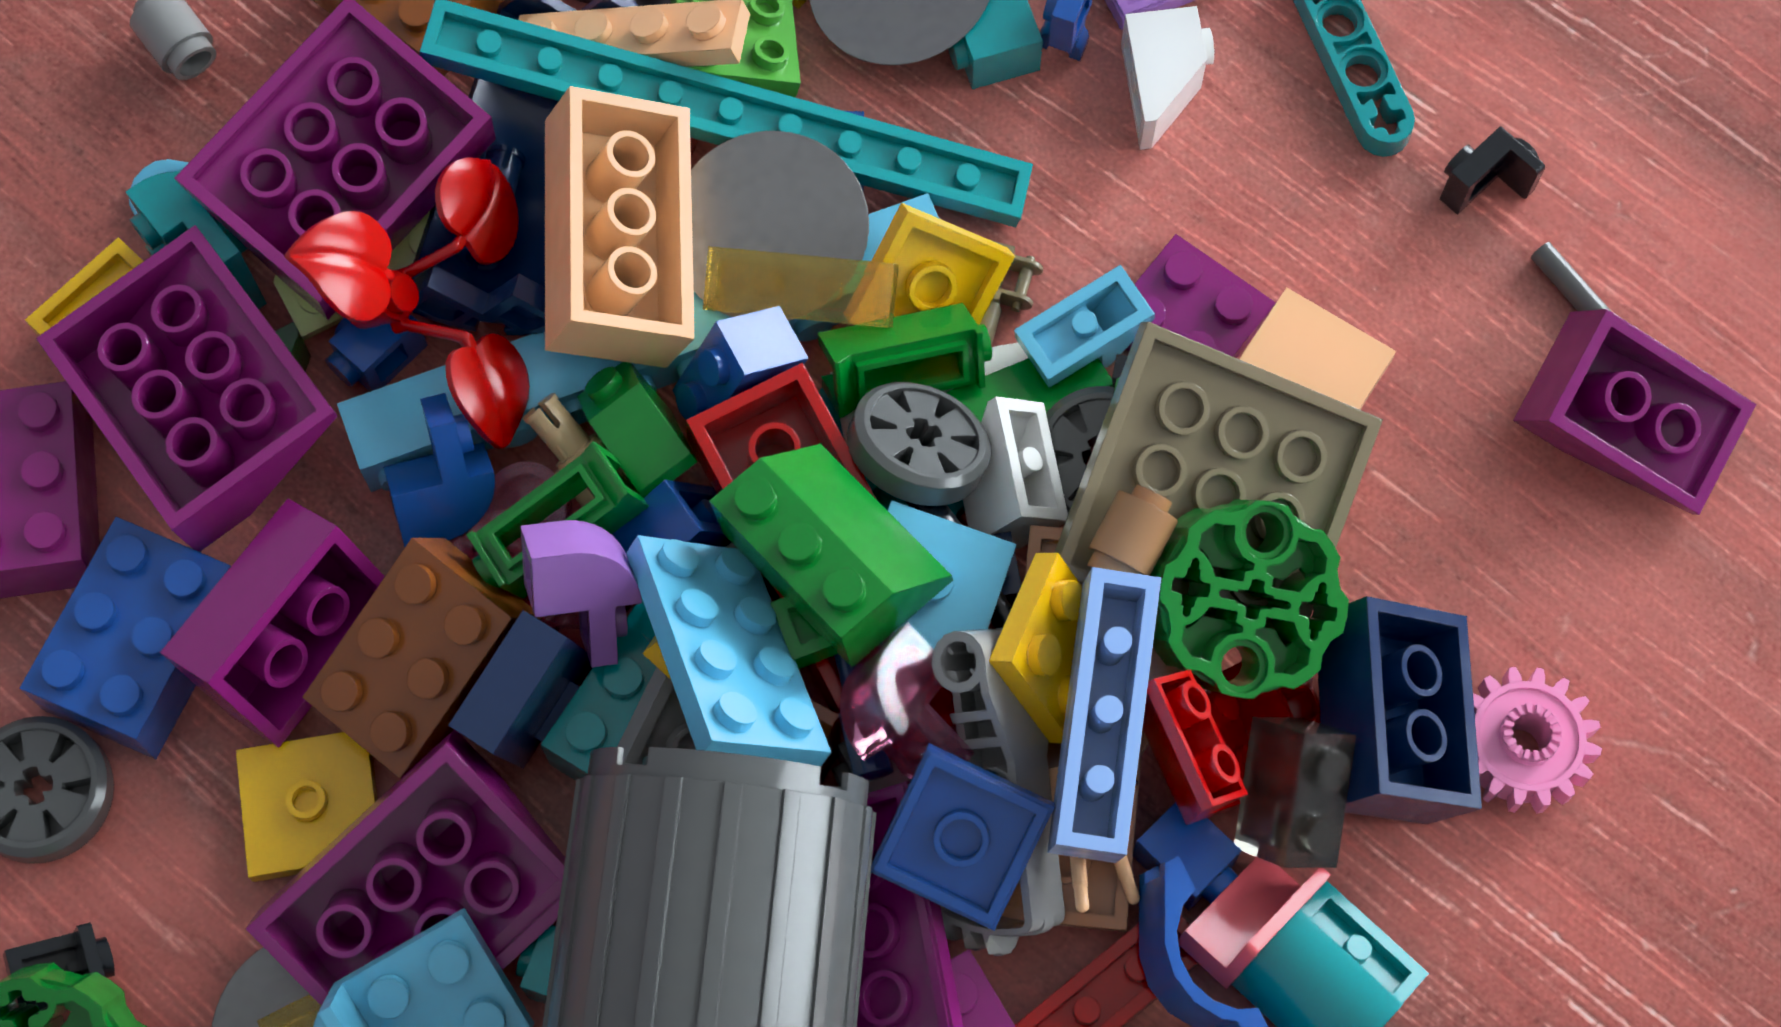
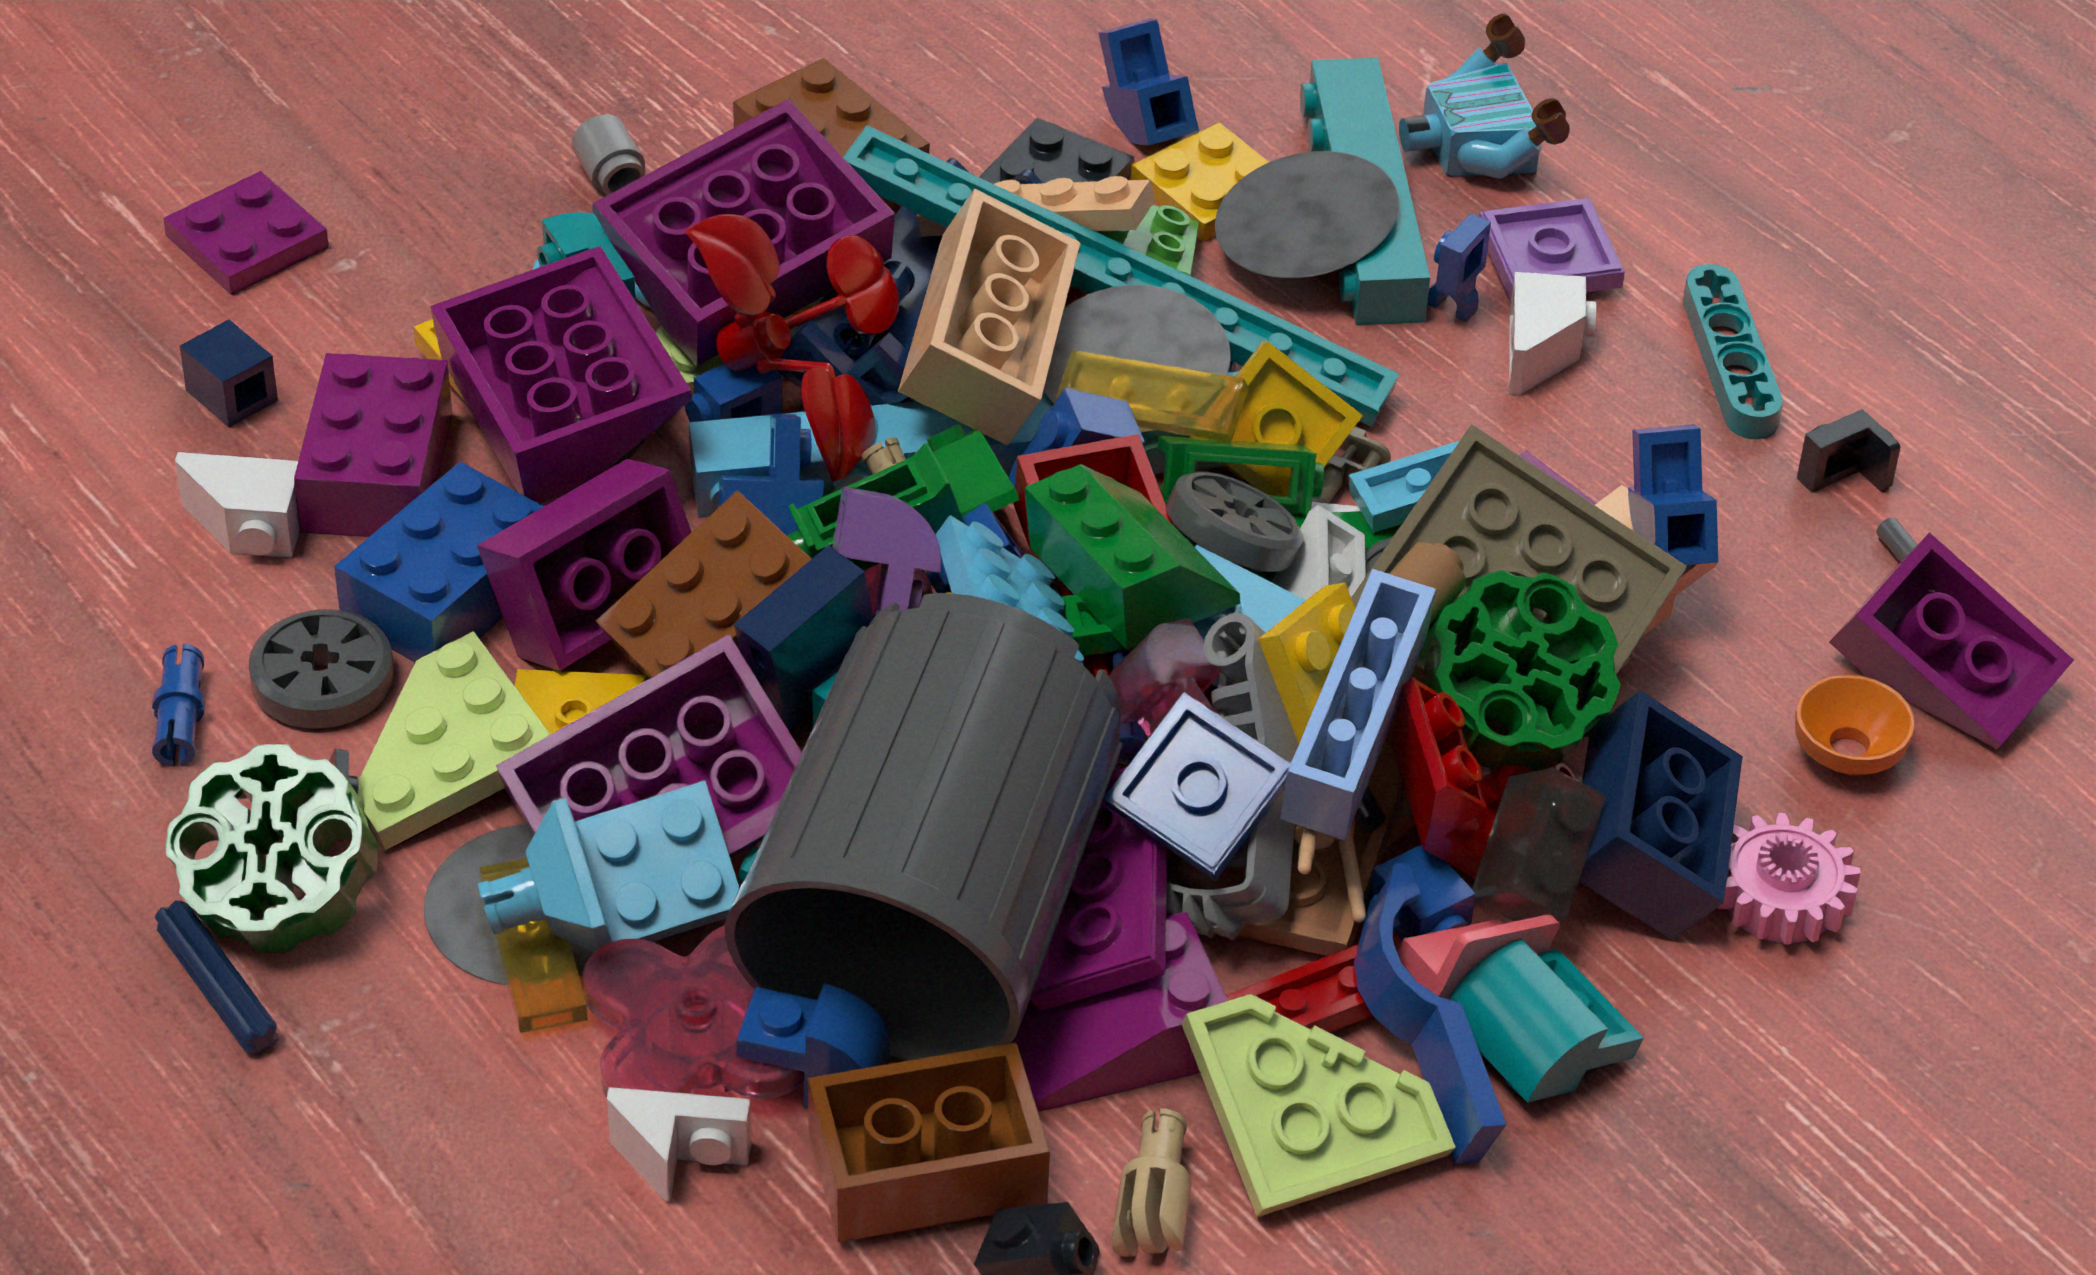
camera: 10 degrees right, 25 degrees down
(189, 863) = (444, 741): none -> yellowish green plate
(1346, 331) = (1669, 495): none -> blue brick
(1577, 512) = (1857, 711): none -> orange piece

